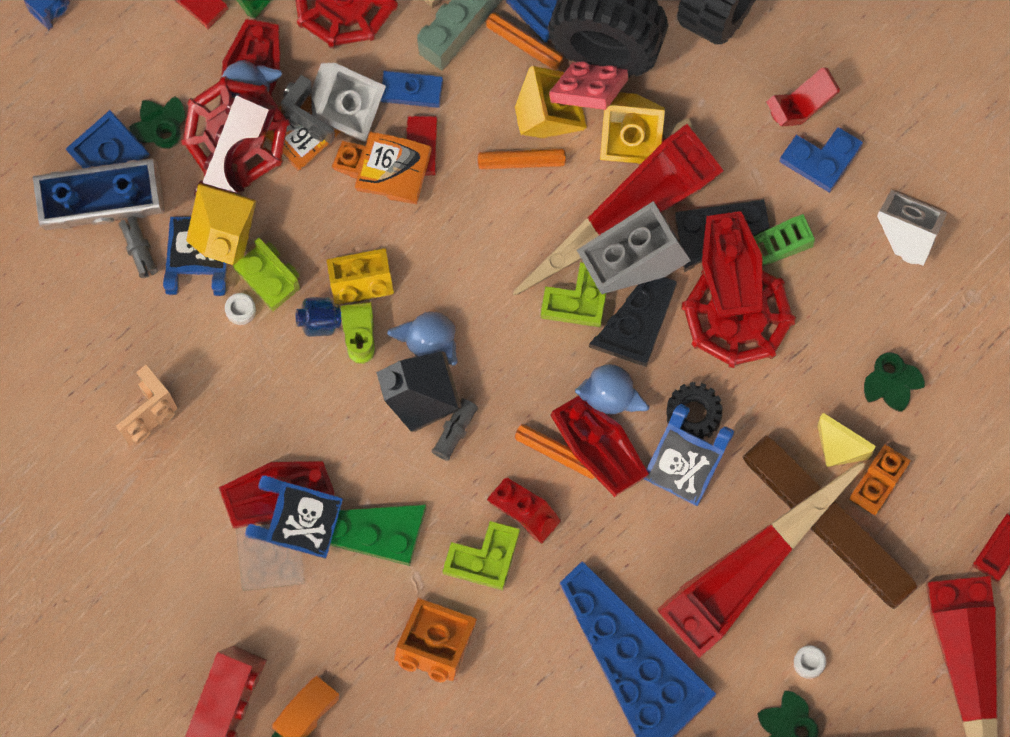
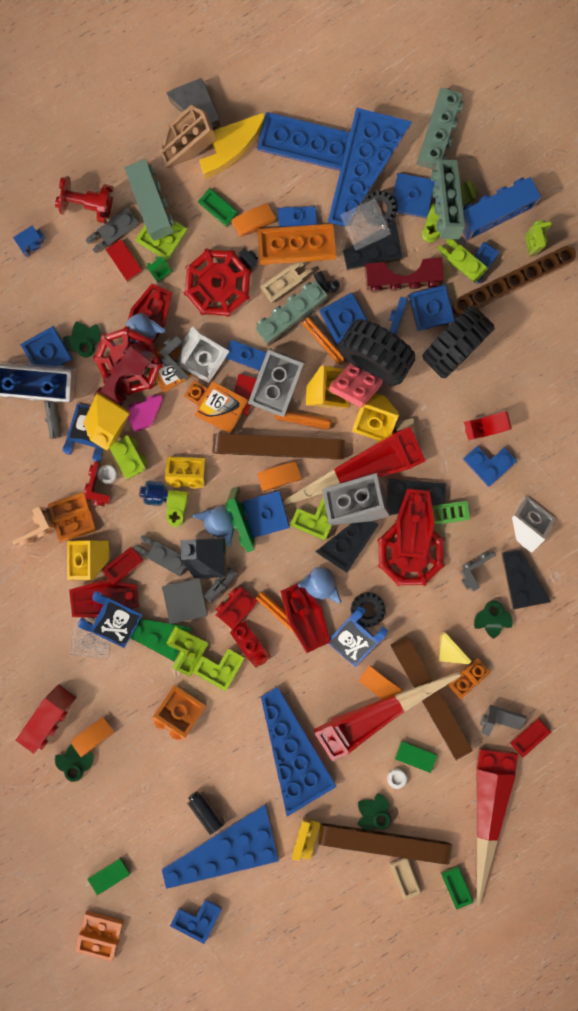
camera: 10 degrees right, 15 degrees up
(199, 384) = (72, 517): none -> orange slope
(234, 344) = (99, 499): none -> red bracket
(234, 436) = (86, 559): none -> yellow slope
(278, 204) = (145, 414): none -> dark pink slope
(294, 435) = (122, 565): none -> red tile
(353, 408) = (162, 555): none -> dark grey hinge
(404, 466) = (184, 601): none -> dark grey tile
(432, 535) = (190, 647): none -> lime plate
(461, 325) = (239, 523): none -> green wing
(468, 111) = (276, 382): none -> light grey slope
(486, 458) = (236, 607): none -> red bracket
(493, 205) = (278, 446): none -> reddish brown beam
(500, 308) = (266, 514): none -> blue plate
(502, 248) = (279, 476): none -> orange slope
(739, 517) = (378, 683): none -> orange slope
(830, 620) = (415, 756): none -> green tile
(837, 328) = (468, 579): none -> dark grey bracket
(922, 316) = (522, 582): none -> black wing
(949, 525) = (501, 716): none -> dark grey bracket

